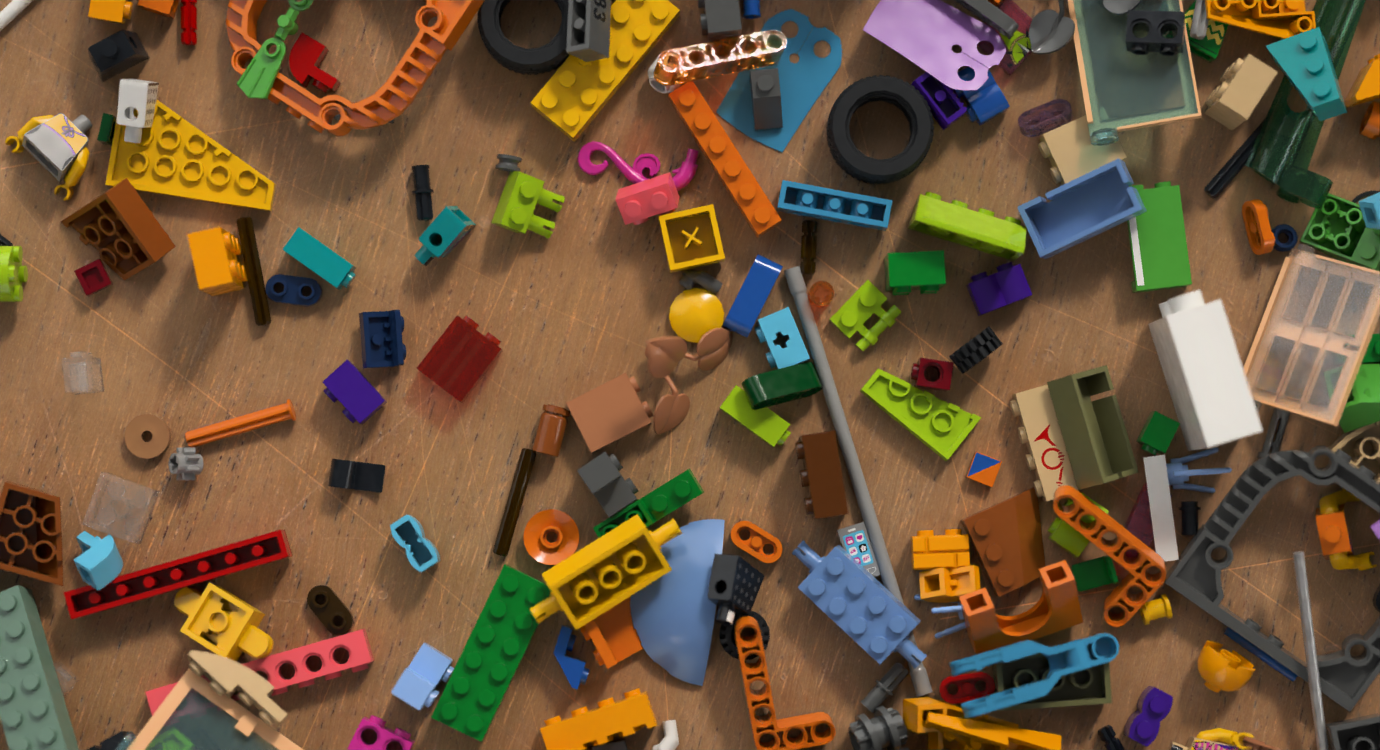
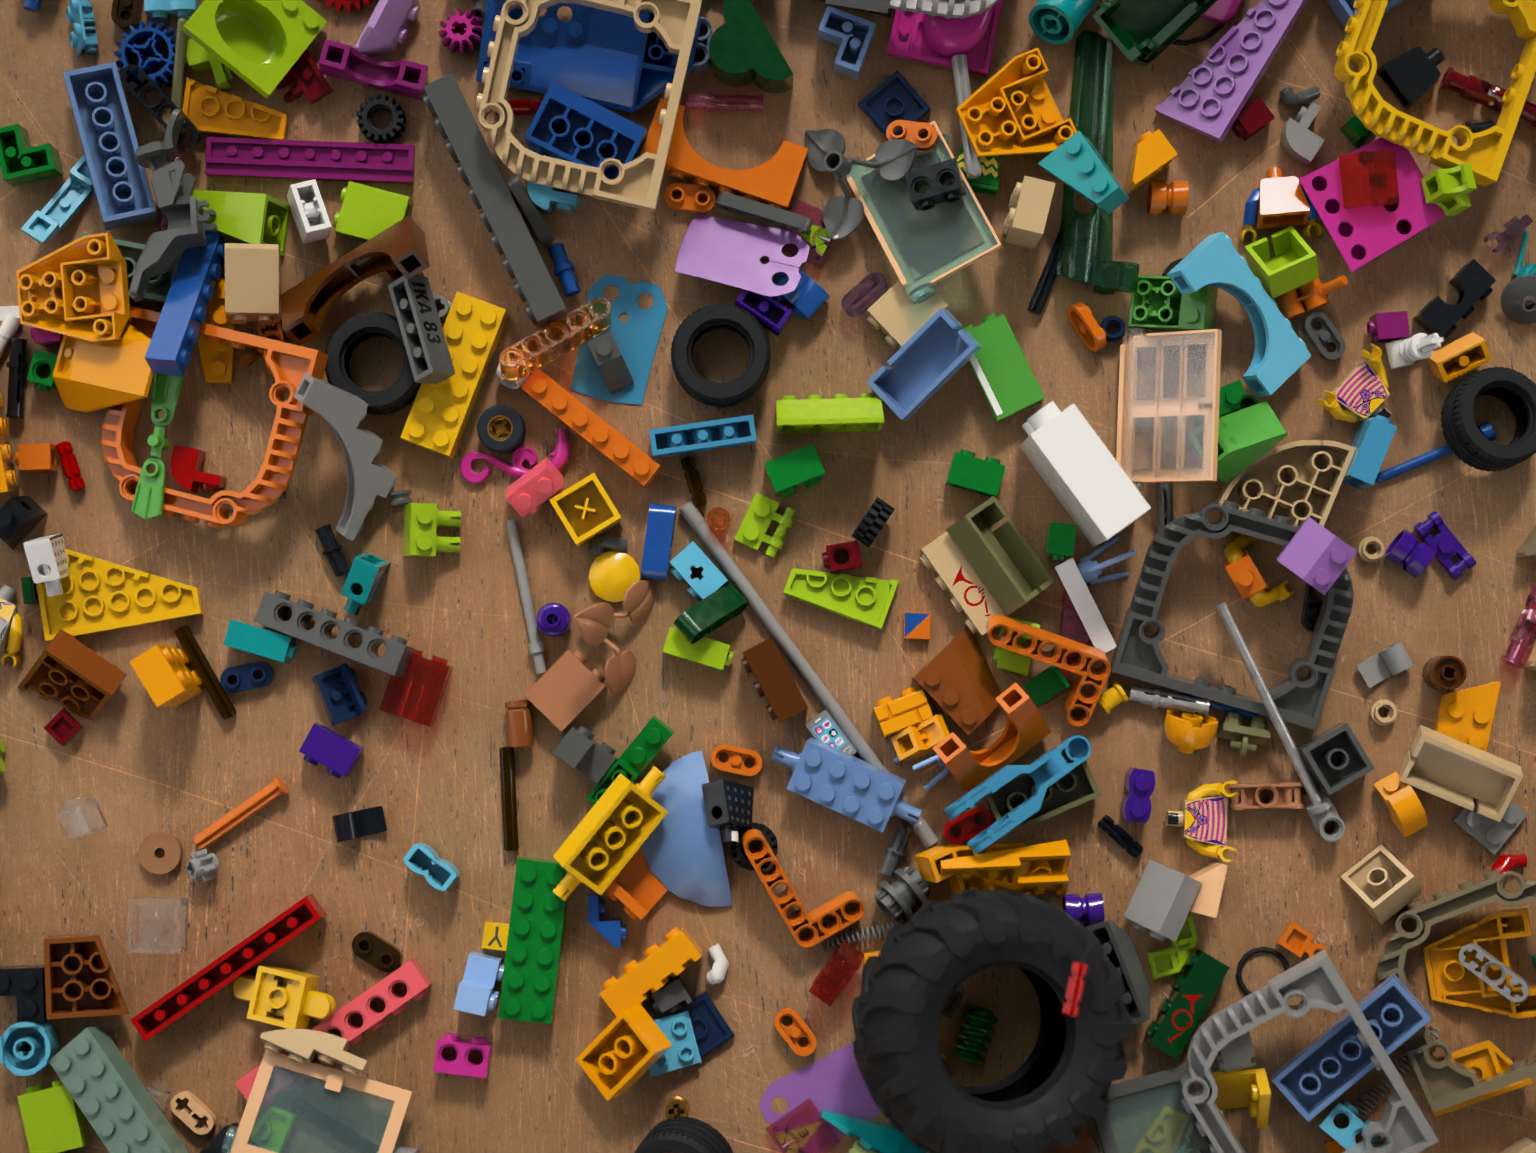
camera: 15 degrees left, 0 degrees up
(87, 712) = (198, 1108): none -> light nougat beam
(99, 561) = (153, 980): medium azure brick -> none
(340, 236) = (272, 614): none -> dark grey brick
(455, 635) = (495, 936): none -> yellow tile
(486, 98) = (359, 446): none -> light grey arch
(536, 536) = (538, 822): orange dish -> none
(594, 359) = (536, 646): none -> light grey bar
(621, 348) = (557, 628): none -> dark purple head
(635, 120) = (494, 423): none -> black wheel
(999, 288) = (875, 461): dark purple brick -> none
(1095, 336) = (975, 474): none -> green brick
(1189, 514) = (1114, 606): black pin -> none
(1211, 631) = (1168, 700): none -> light grey pin
(1275, 694) = (1243, 737): none -> olive hips

